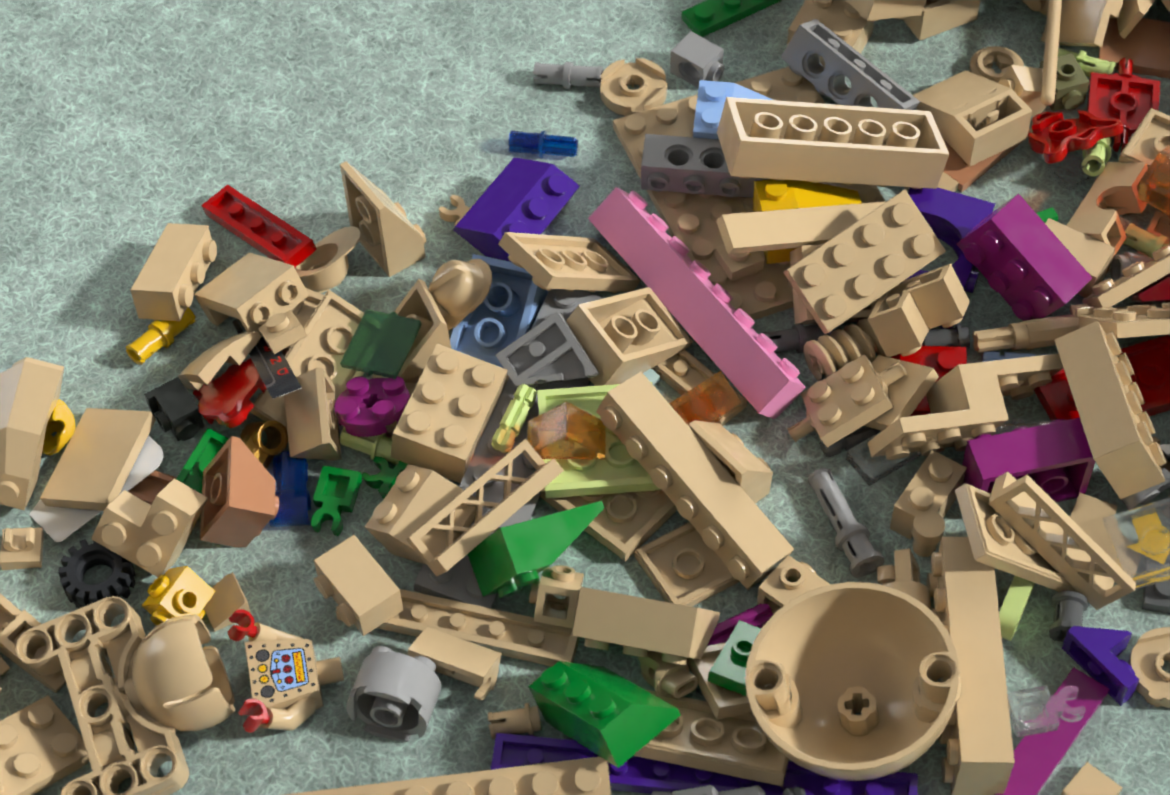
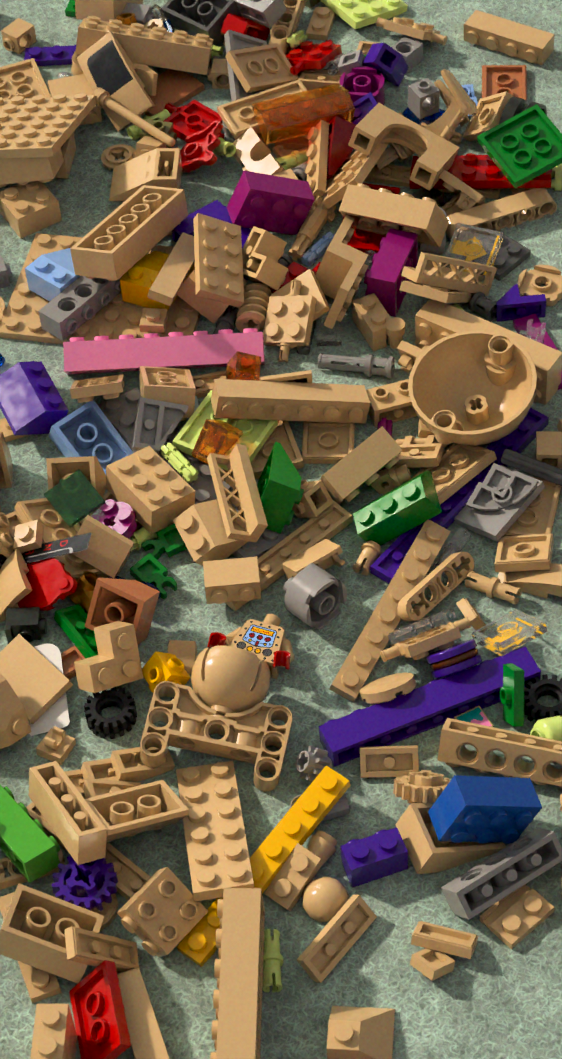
camera: 55 degrees left, 5 degrees down
(460, 288) = (69, 440): tan piece -> none
(731, 663) = (412, 438): plate -> none
(842, 60) = (42, 209): light grey brick -> none

